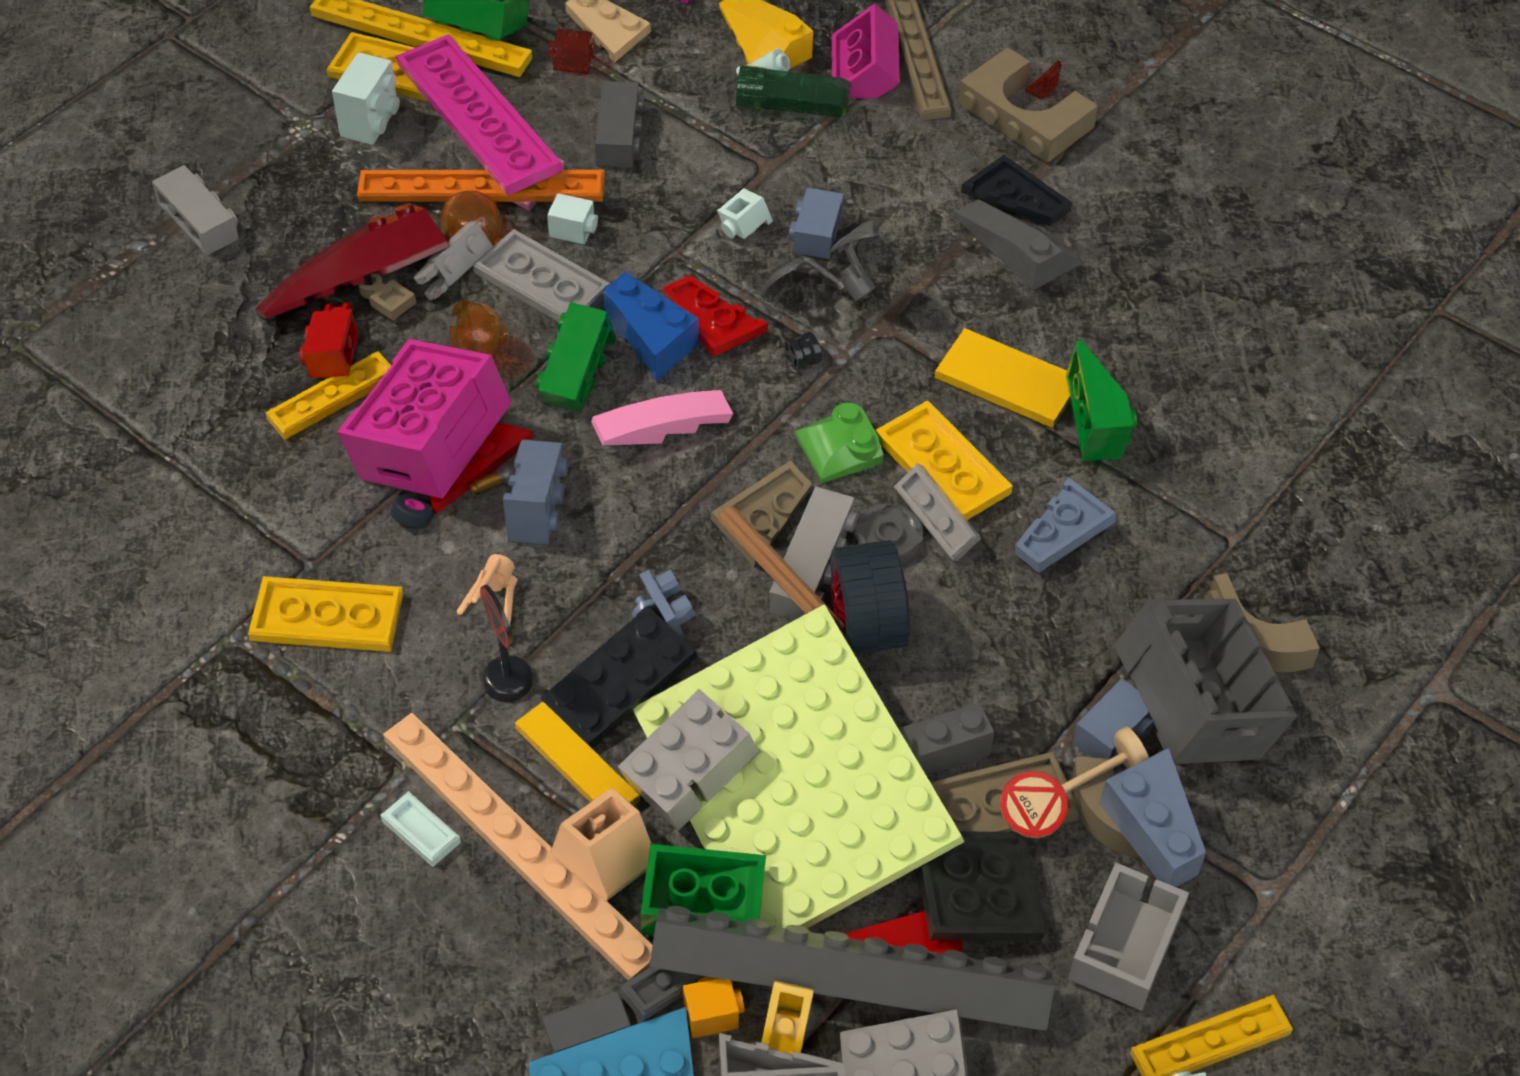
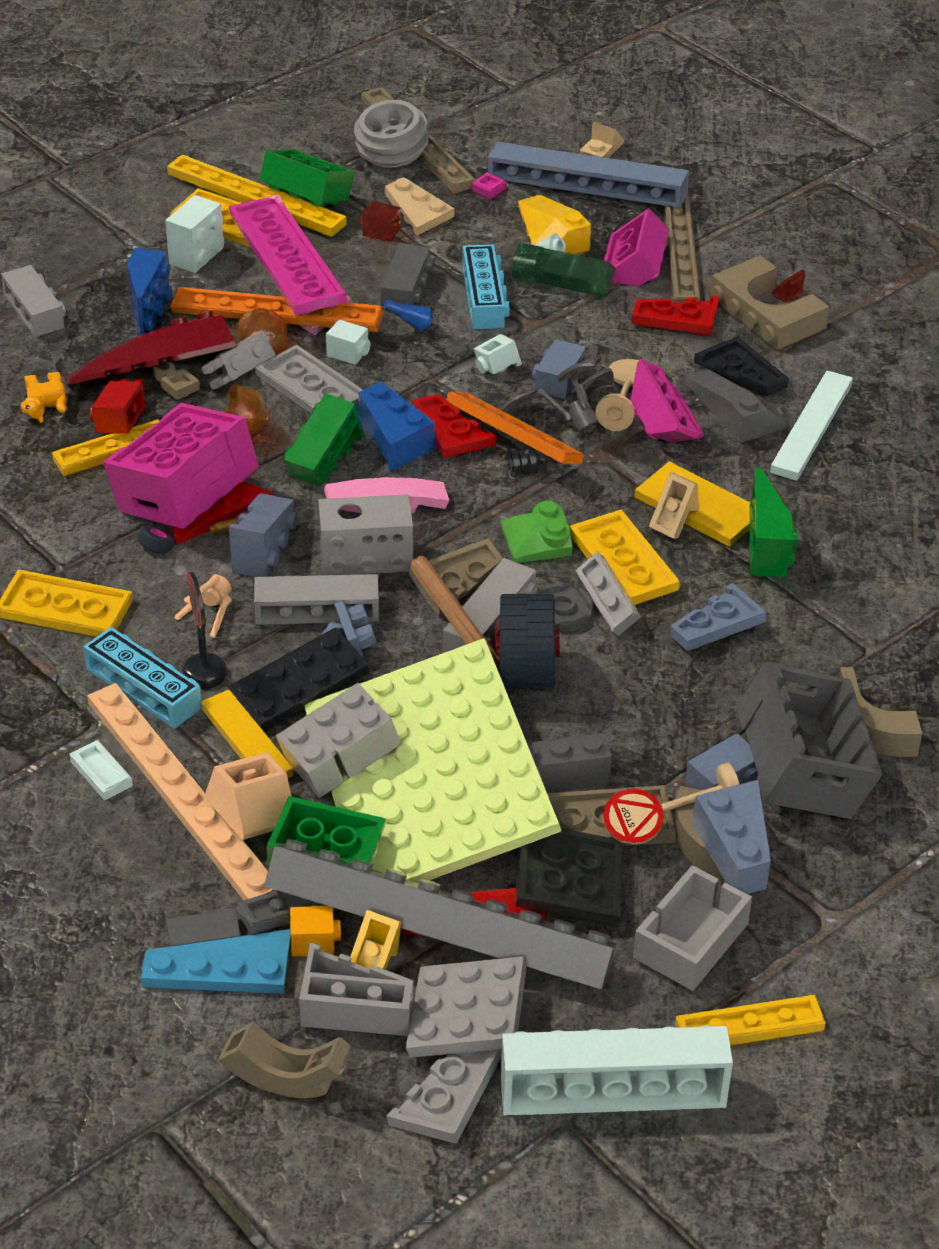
camera: 10 degrees right, 10 degrees down
(239, 336) = (44, 395): none -> light orange animal
(328, 179) = (148, 286): none -> blue slope
(442, 701) = (143, 677): none -> medium azure brick
(612, 566) = (313, 598): none -> light grey brick
(641, 174) = (416, 316): none -> blue cone
(668, 487) = (370, 543): none -> light grey piece
(709, 124) = (485, 287): none -> medium azure brick
(788, 311) = (516, 428): none -> orange tile
(897, 216) = (616, 410): none -> tan piece
(933, 134) = (685, 316): none -> red wing
(943, 259) = (662, 406): none -> dark pink wedge
(986, 390) = (674, 505): none -> tan slope
(1107, 258) = (811, 425): none -> light aqua tile

